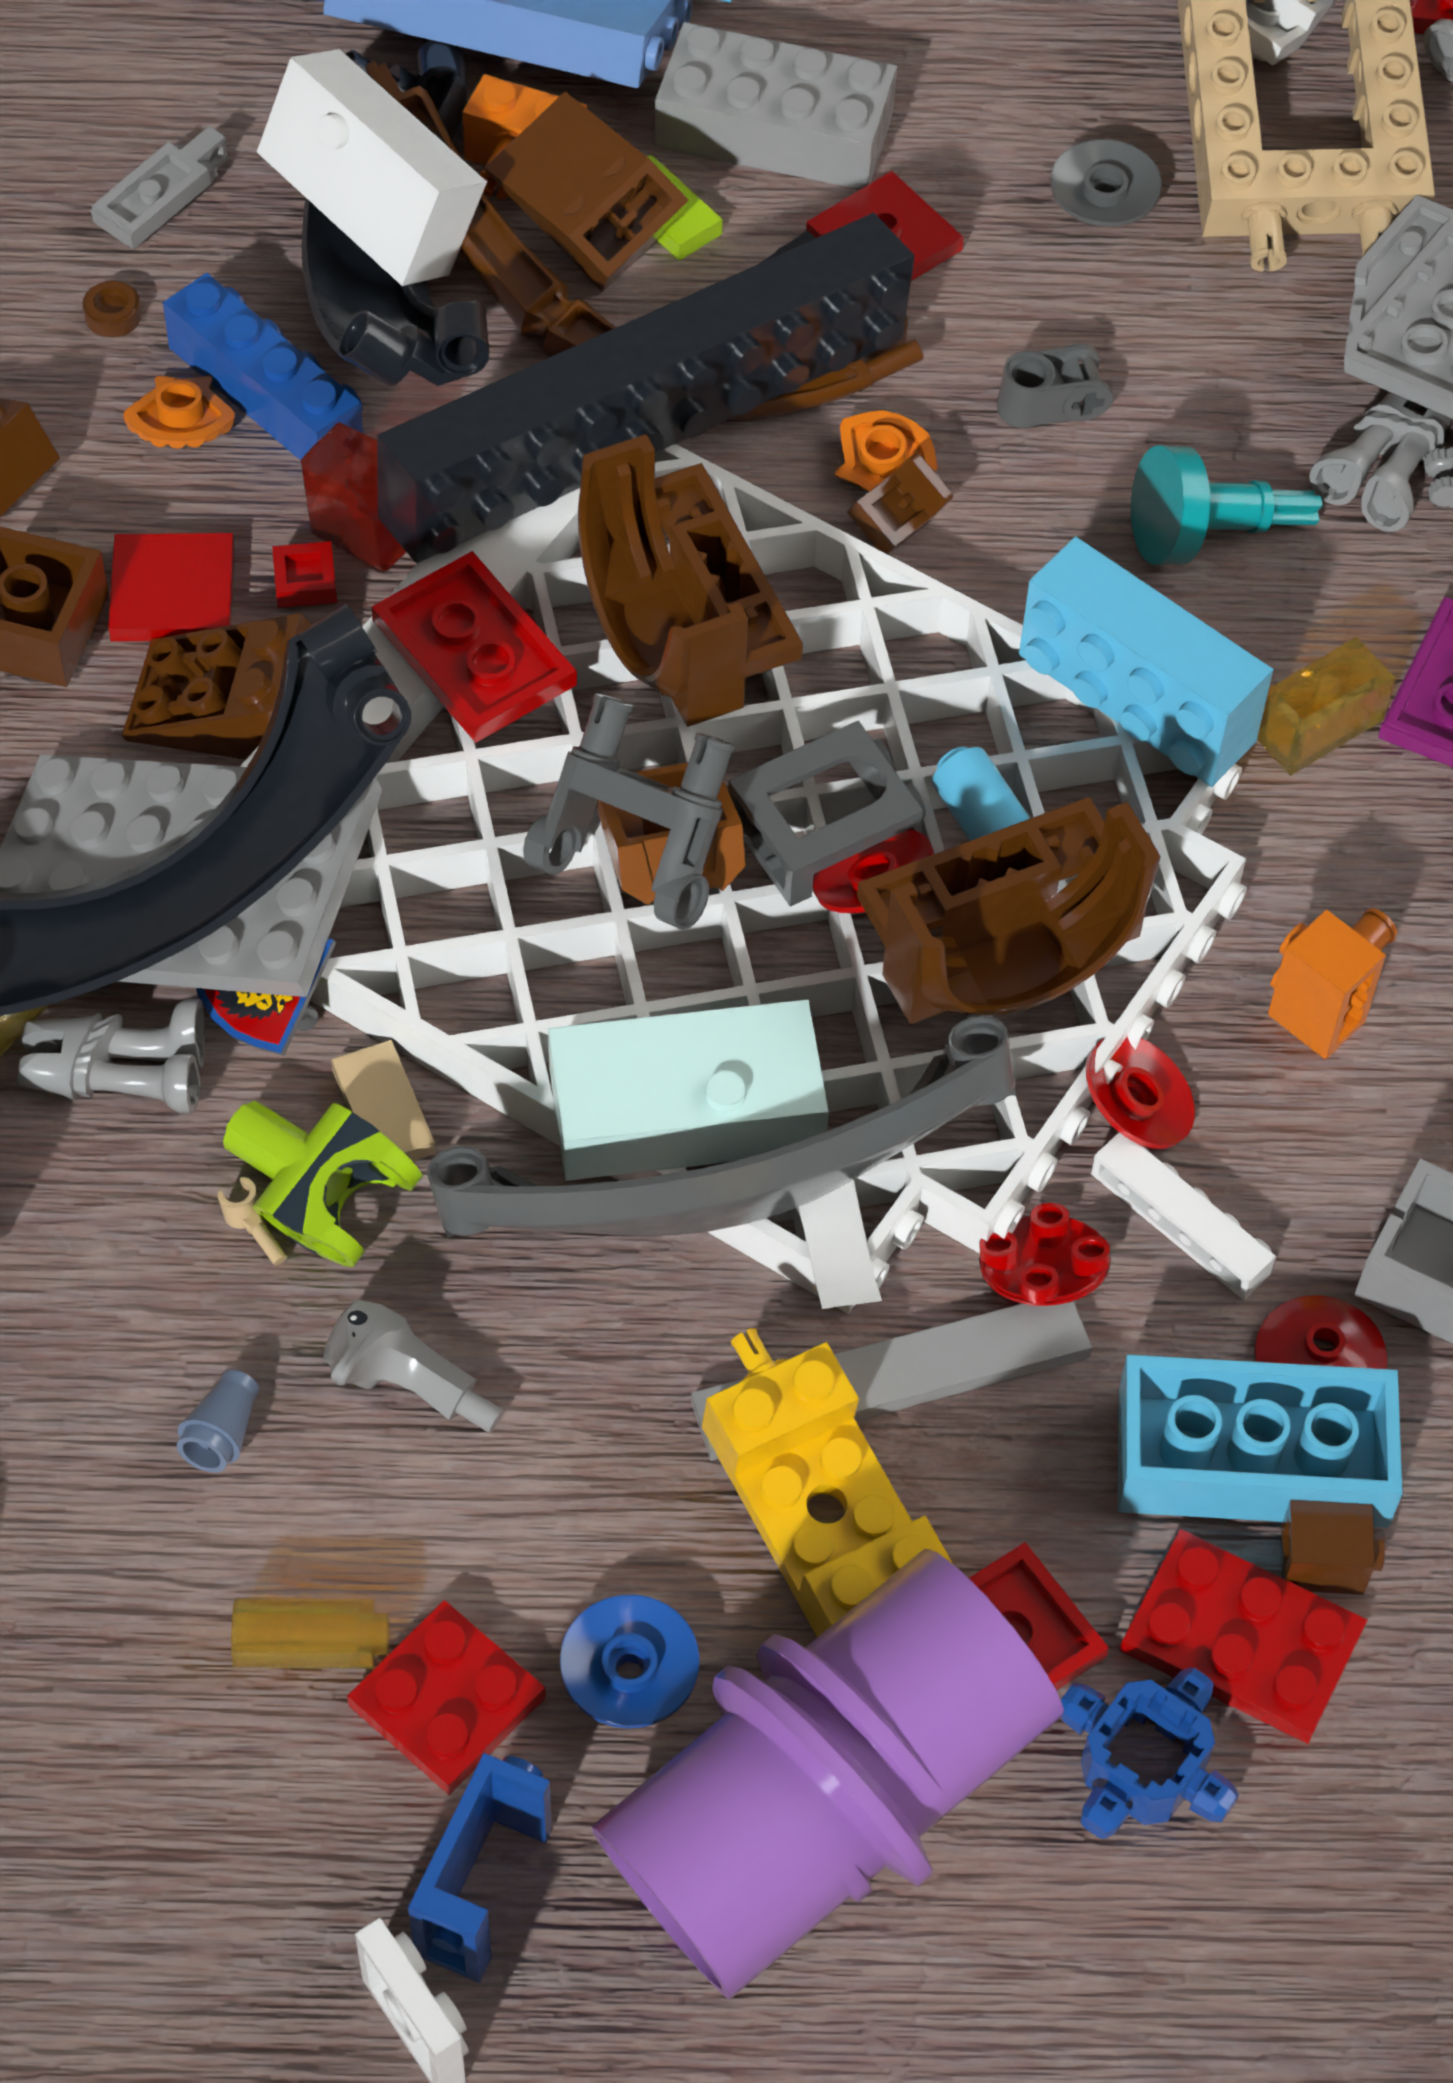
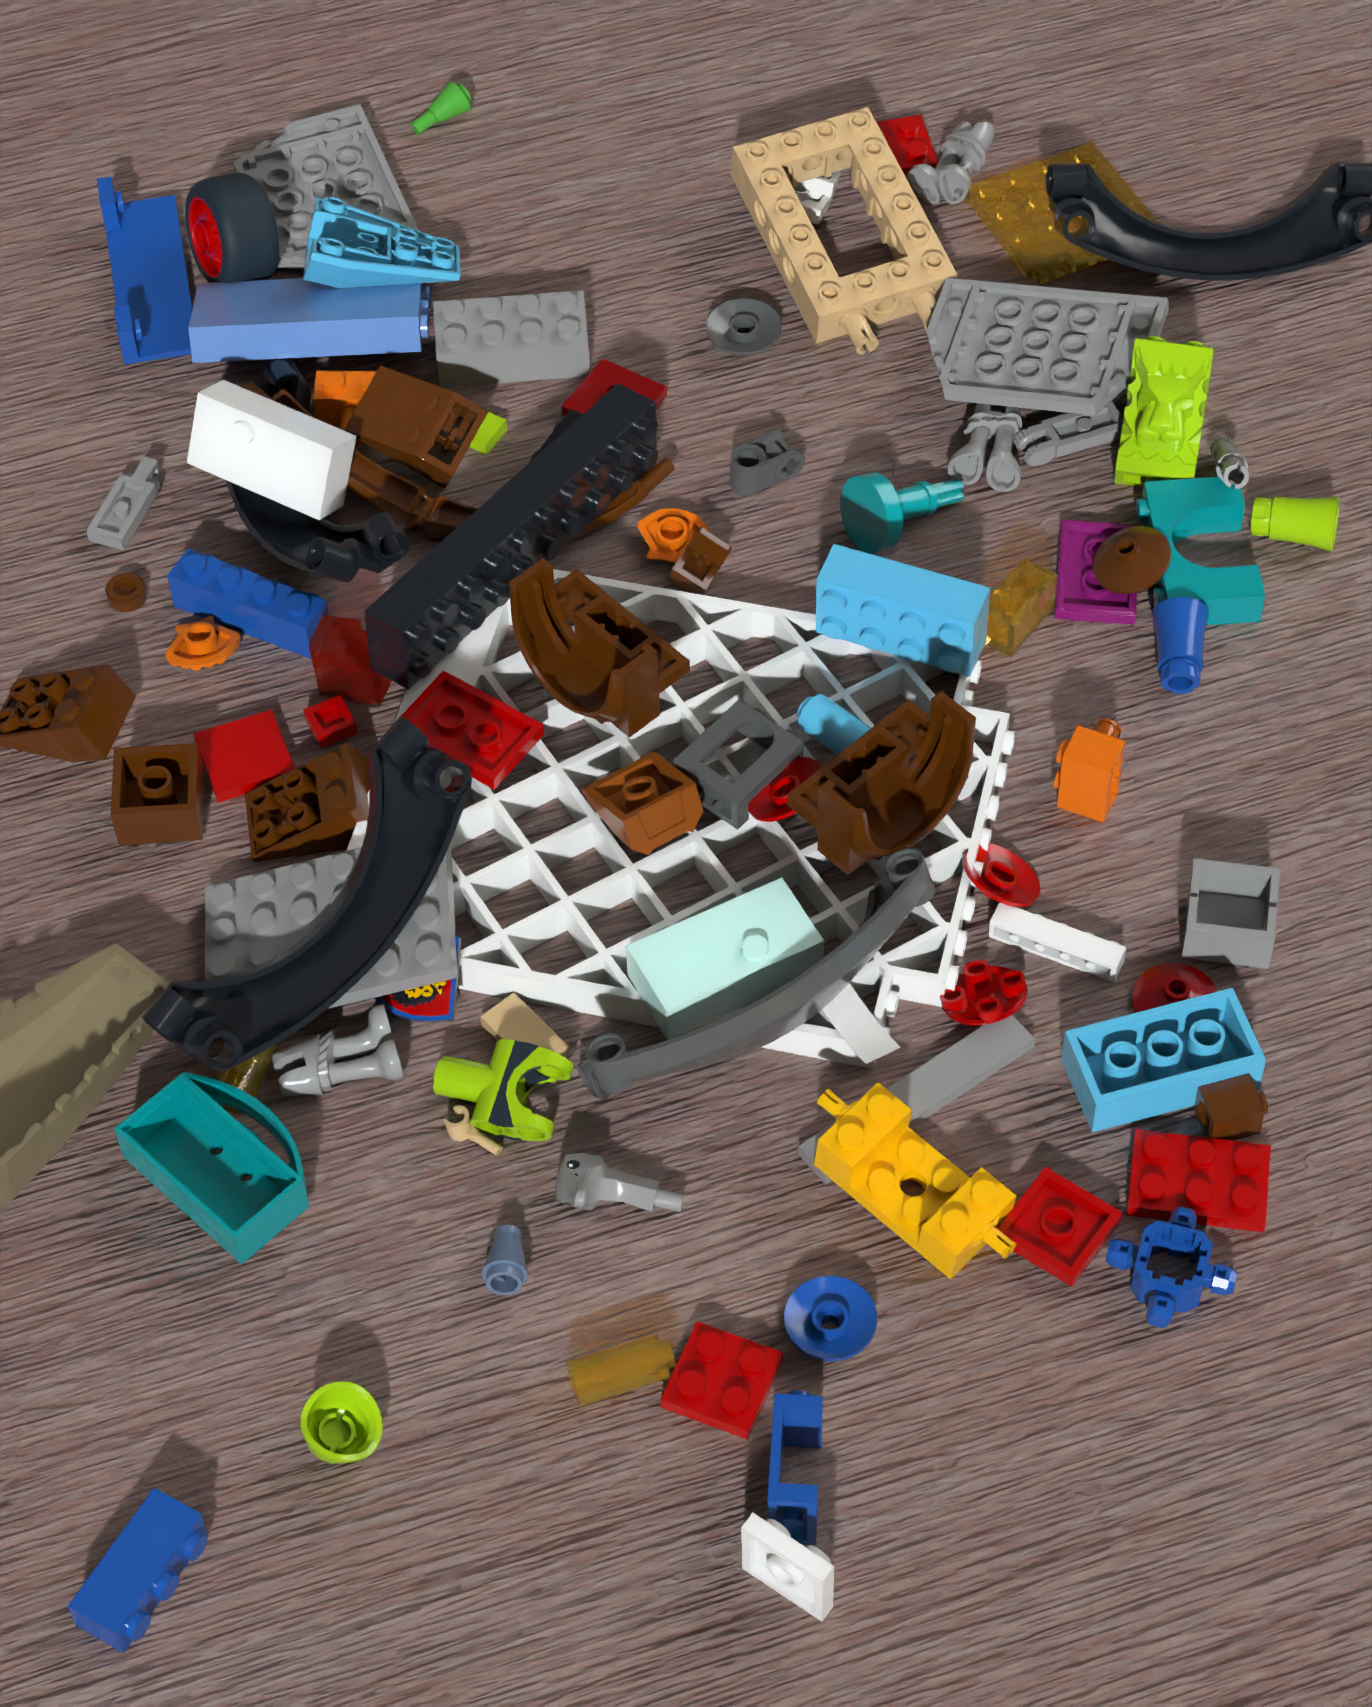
camera: 15 degrees left, 5 degrees down
(688, 810) = (662, 782): dark grey connector -> none
(828, 1769) = (990, 1333): medium lavender piece -> none

